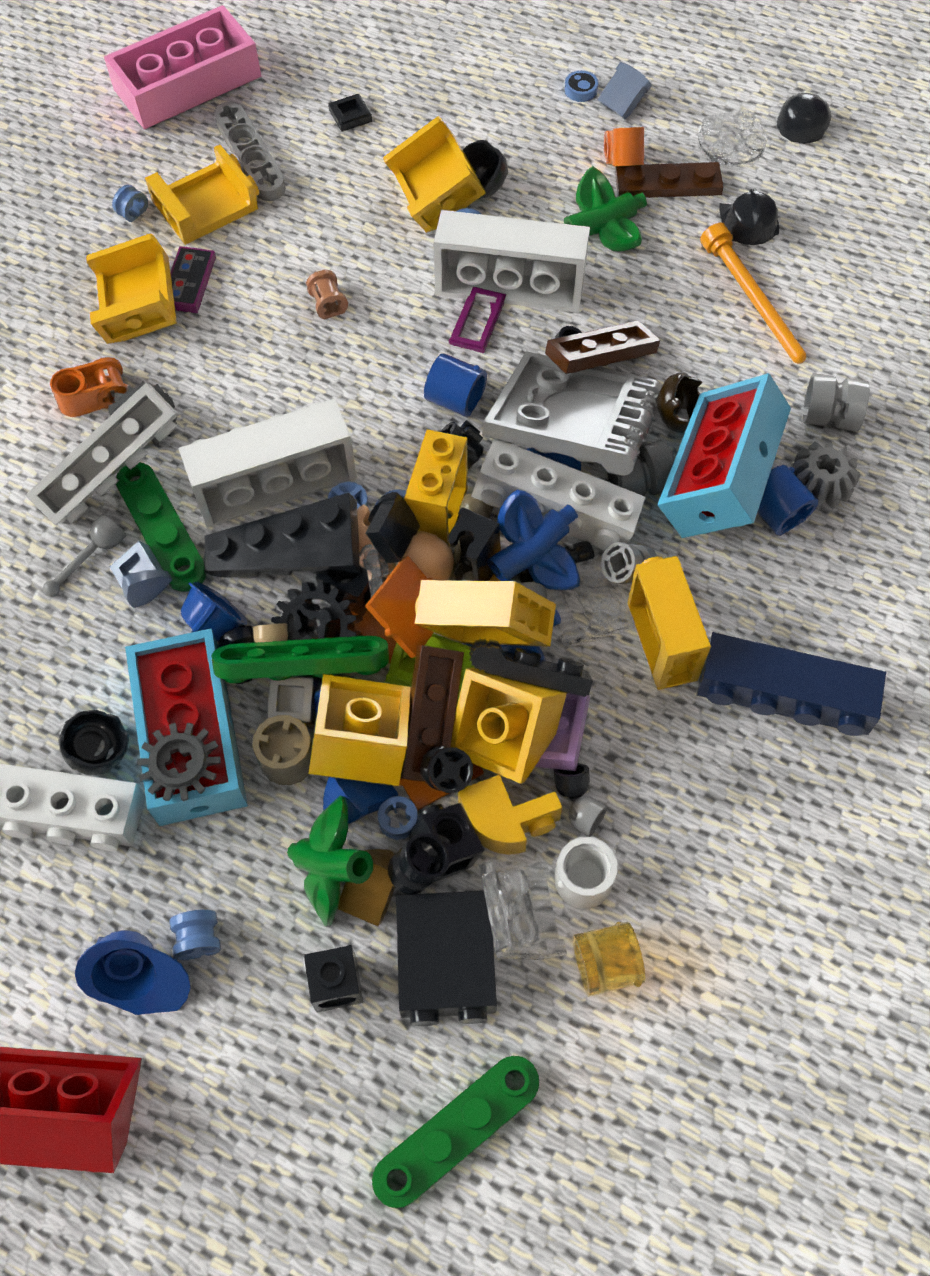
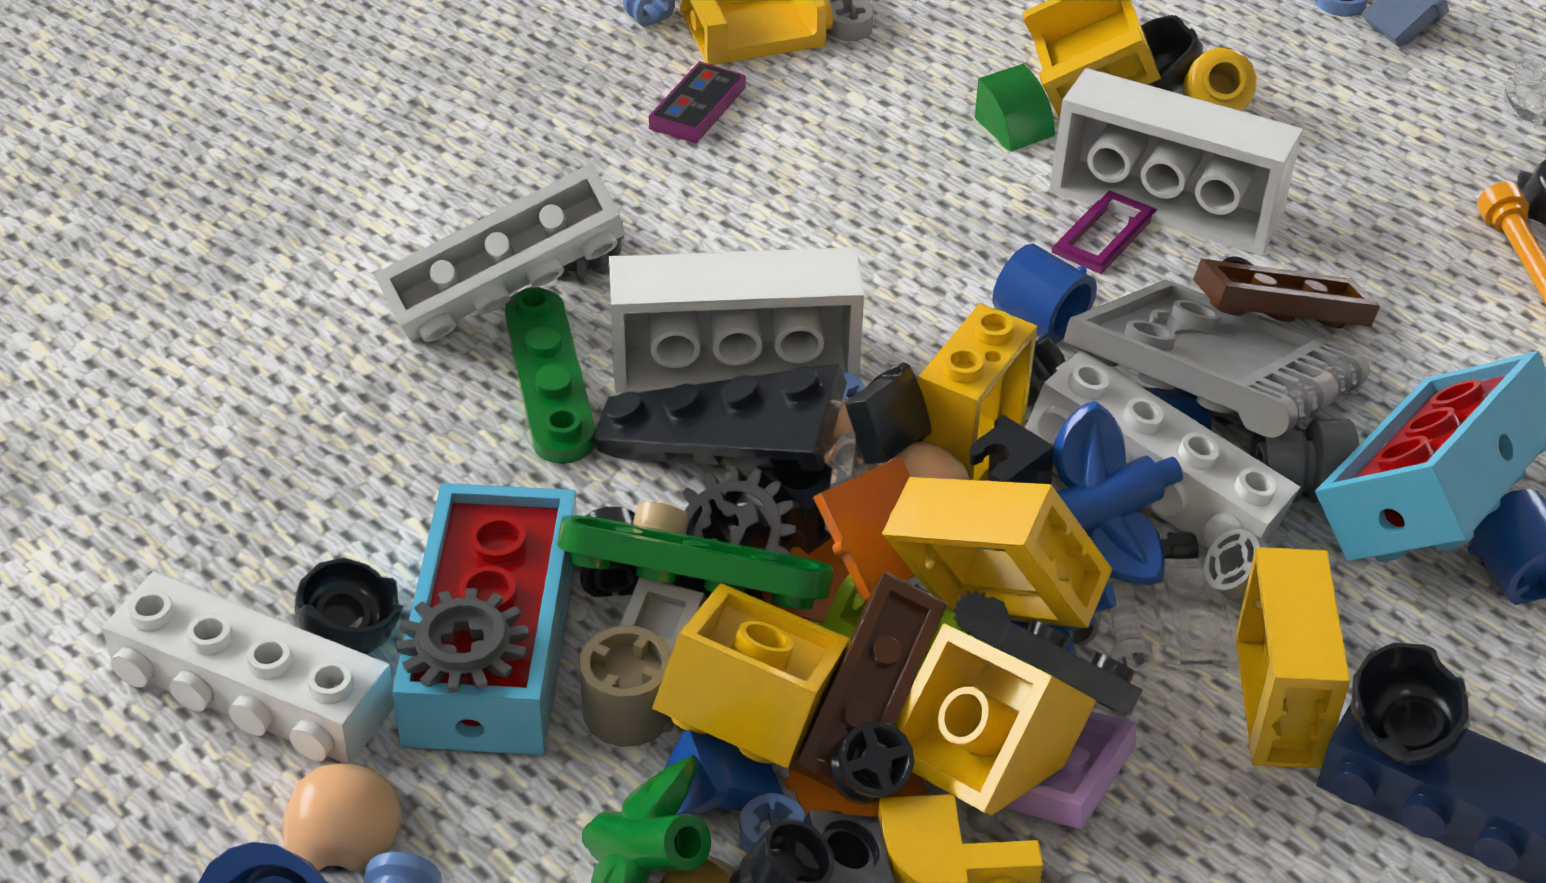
camera: 15 degrees right, 20 degrees down
(86, 387) = (496, 181): orange piece -> none
(104, 535) = (465, 364): light grey hinge -> none
(132, 289) = (615, 91): yellow panel -> none
(140, 575) = (497, 422): sand blue tile -> none
(141, 888) = (341, 816): none -> light nougat hair
(209, 609) = (579, 467): blue piece -> none
(326, 294) = (894, 146): nougat bush -> none
(397, 236) = (1014, 107): none -> green brick
(523, 186) = (1221, 78): none -> yellow head
(572, 783) = (1072, 848): black hinge -> none
(607, 214) = (1338, 146): green plant -> none
(624, 146) = (1388, 64): orange piece -> none
(670, 179) = (1447, 125): reddish brown plate -> none
(678, 393) = (1385, 379): dark brown hair -> none
(746, 650) = (1409, 704): none -> black hair

